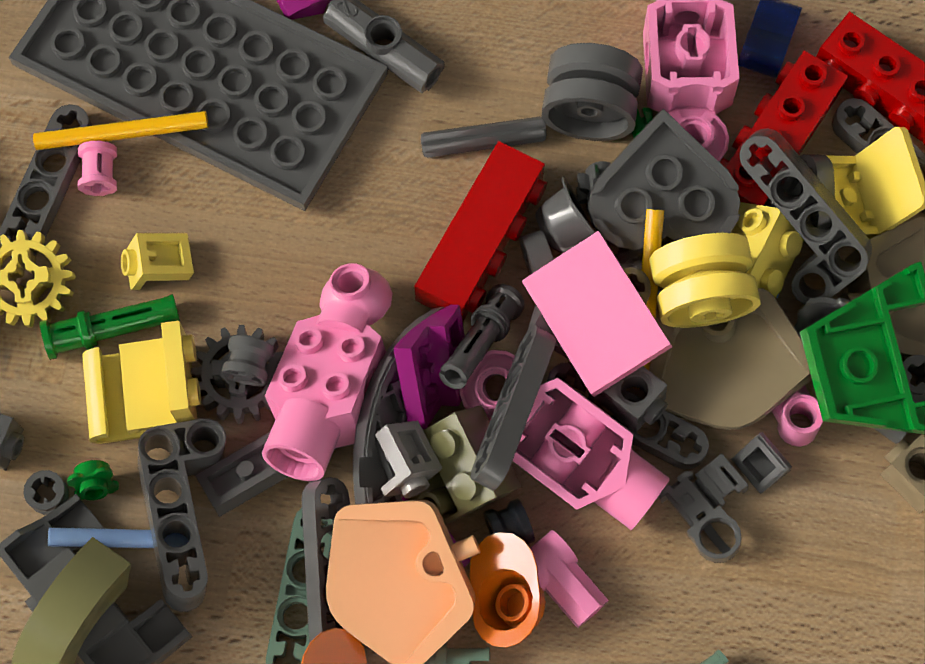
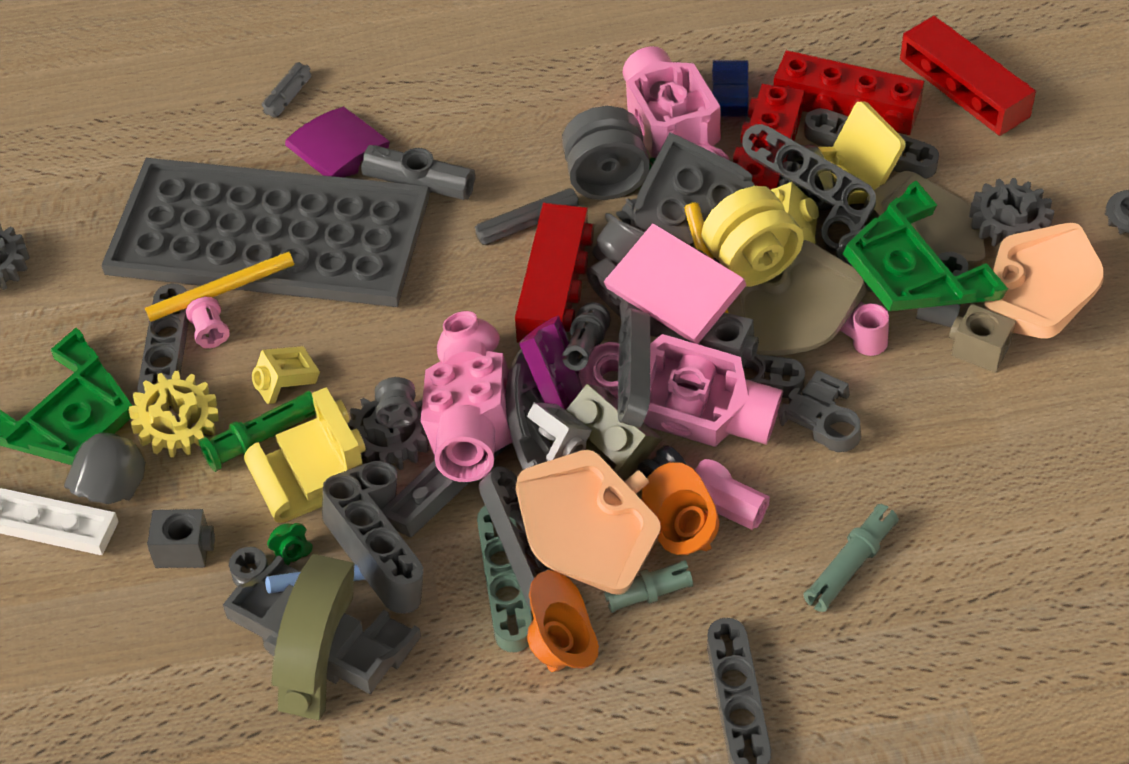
camera: 15 degrees left, 20 degrees down
(761, 463) = (854, 368): dark grey slope -> none

